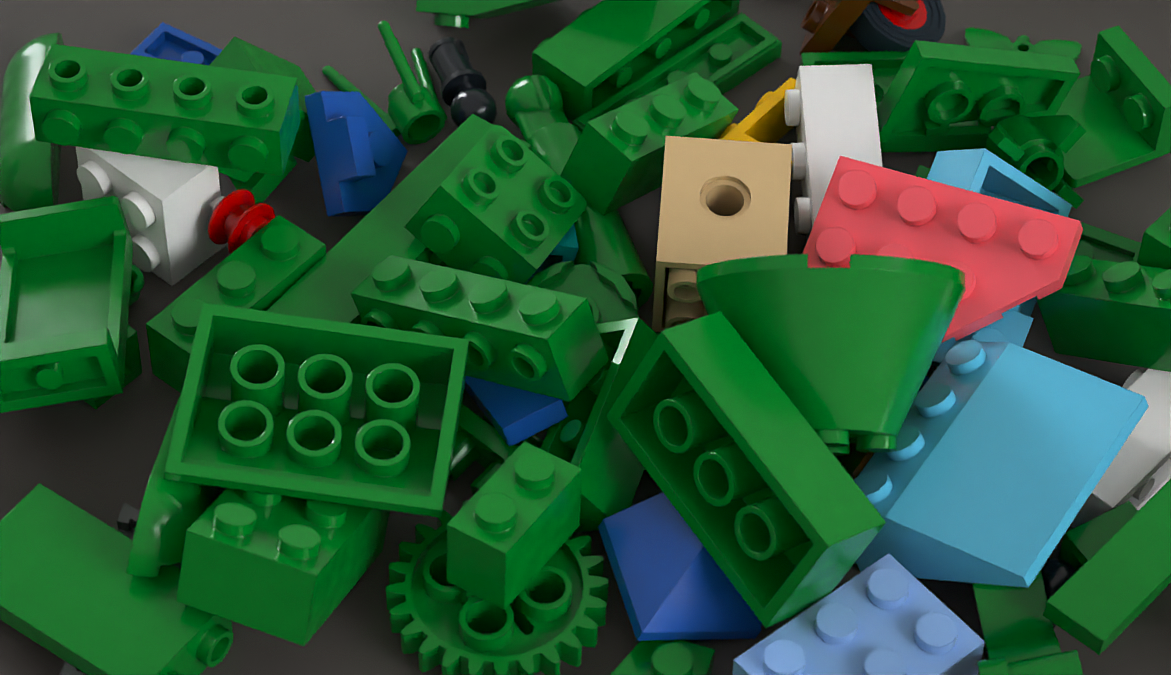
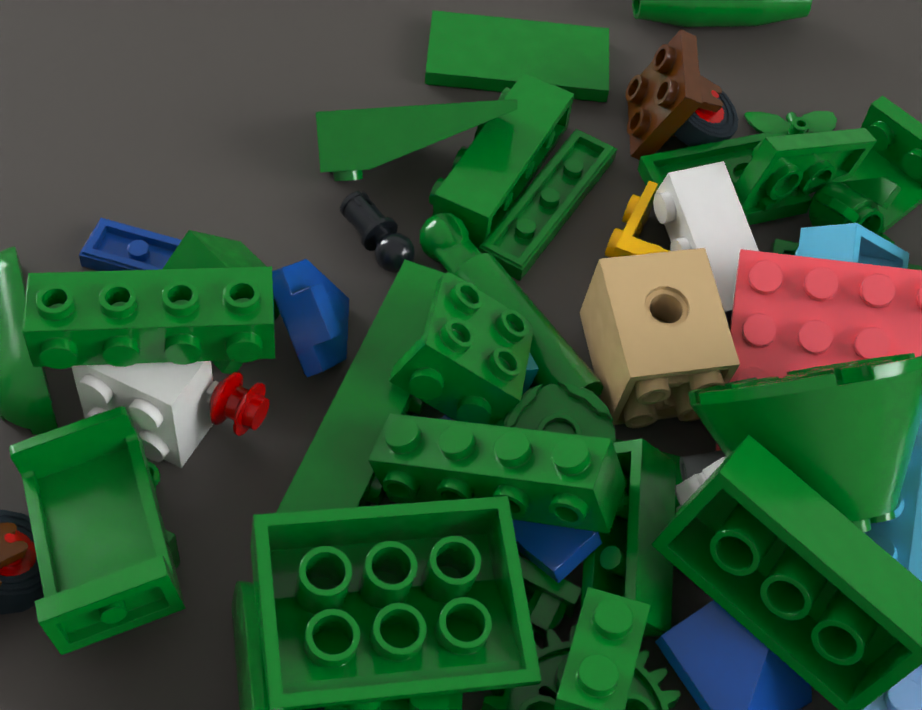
camera: 20 degrees left, 5 degrees up
(247, 279) = (250, 484): green brick -> none
(411, 106) = (342, 257): green plant -> none
(624, 149) = (562, 260): green brick -> none

